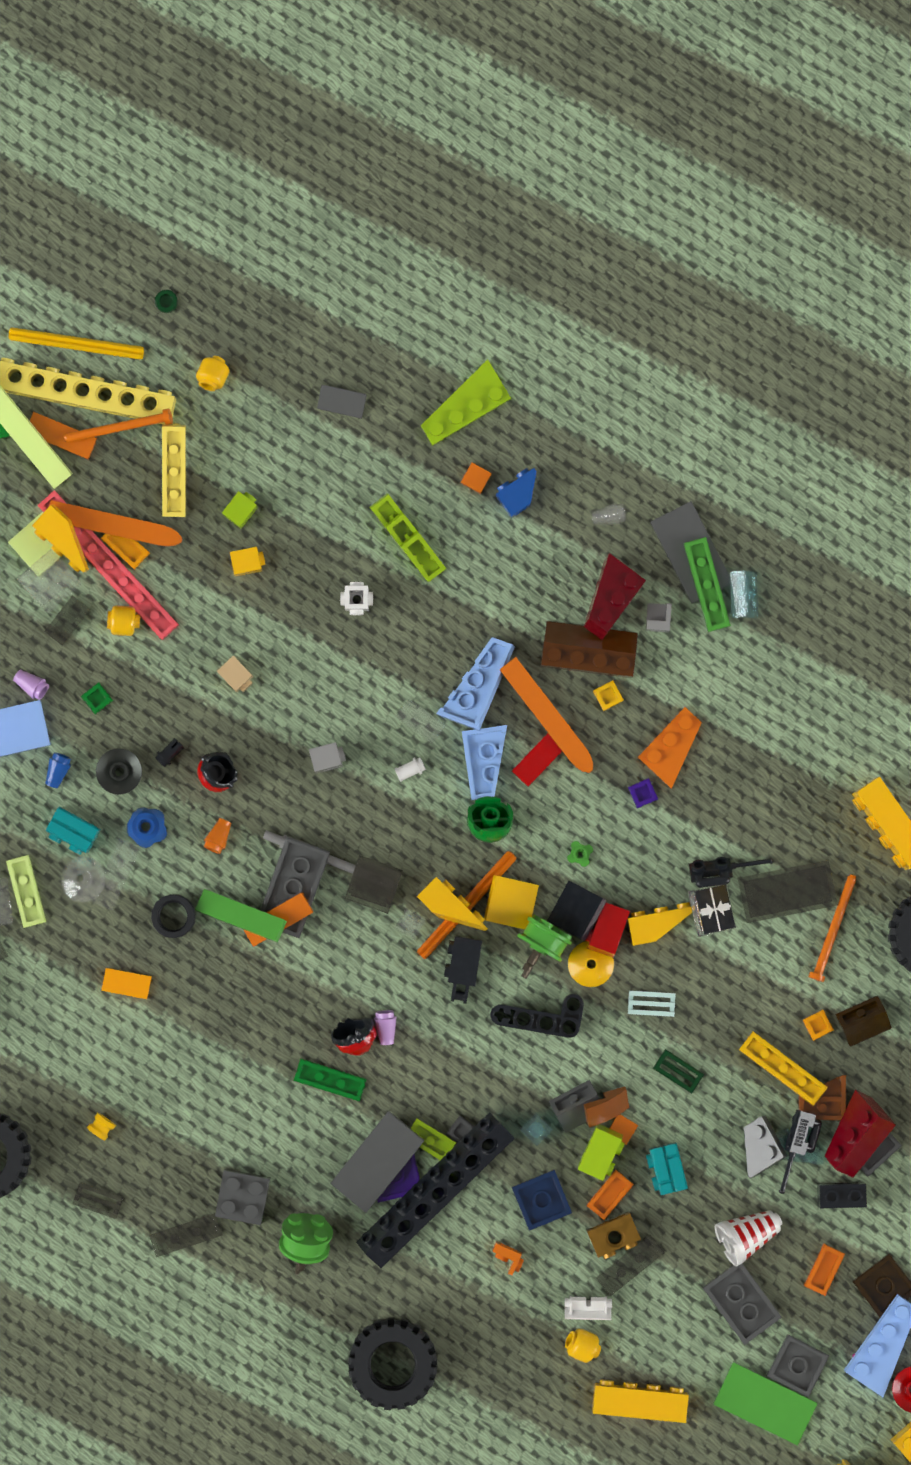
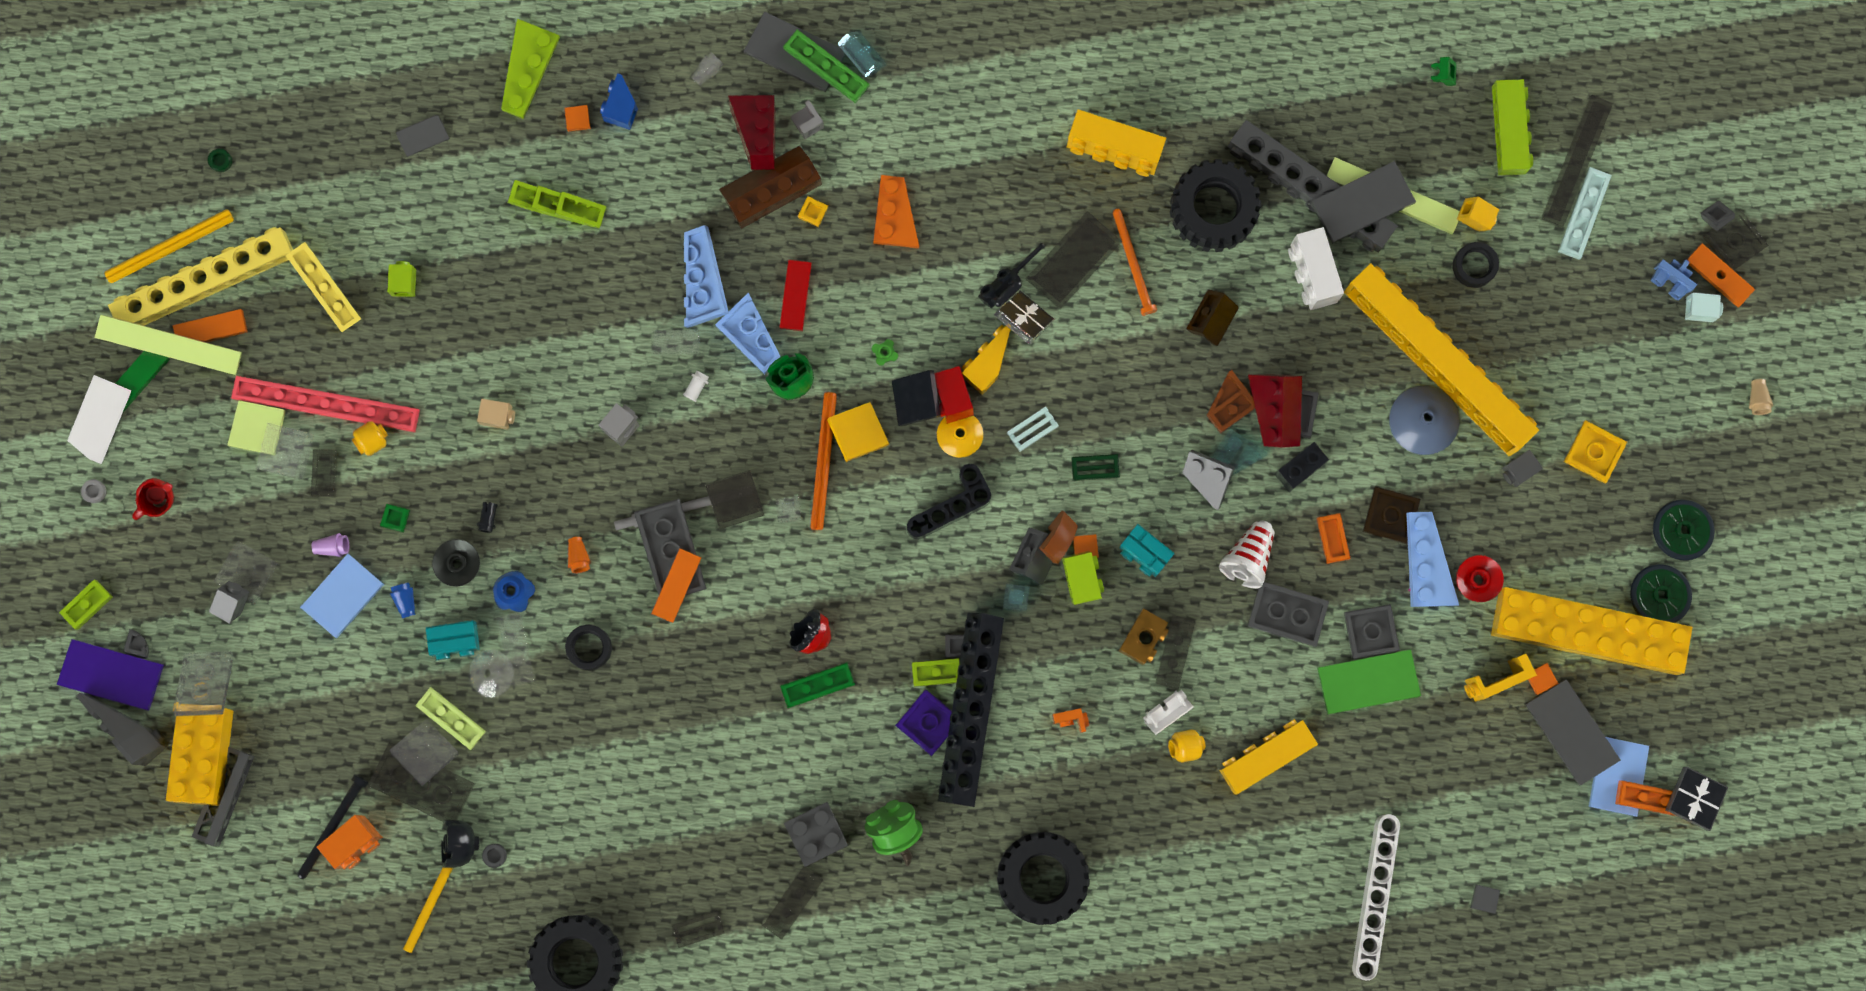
camera: 40 degrees left, 5 degrees down
(60, 532) = (264, 403): yellow slope -> none
(101, 1126) = (655, 865): yellow wheel -> none
(119, 525) = (304, 367): orange piece -> none
(126, 983) = (590, 732): light orange tile -> none
(127, 549) = (328, 378): light orange tile -> none
(165, 417) = (252, 283): orange bar -> none
(212, 373) = (299, 188): yellow head -> none
(217, 771) = (537, 503): black hair -> none
(240, 915) = (643, 604): bright green tile -> none
(247, 561) = (438, 316): yellow brick -> none
(354, 589) = (544, 275): white brick -> none
(377, 1161) = (906, 722): dark grey tile -> none
(385, 1025) = (830, 607): lavender cone -> none
(445, 905) = (804, 471): yellow slope -> none
(463, 965) = (857, 510): black brick -> none
(541, 1200) = (1063, 653): dark blue tile -> none
(544, 940) = (907, 440): bright green wheel -> none
(547, 715) = (775, 260): orange piece -> none
(609, 1194) = (1115, 607): orange tile -> none
(643, 793) = (899, 268): dark purple tile -> none
(783, 1068) = (1177, 401): yellow tile -> none
(796, 1139) = (1232, 449): black piece -> none
(818, 1025) = (1178, 347): light orange tile -> none

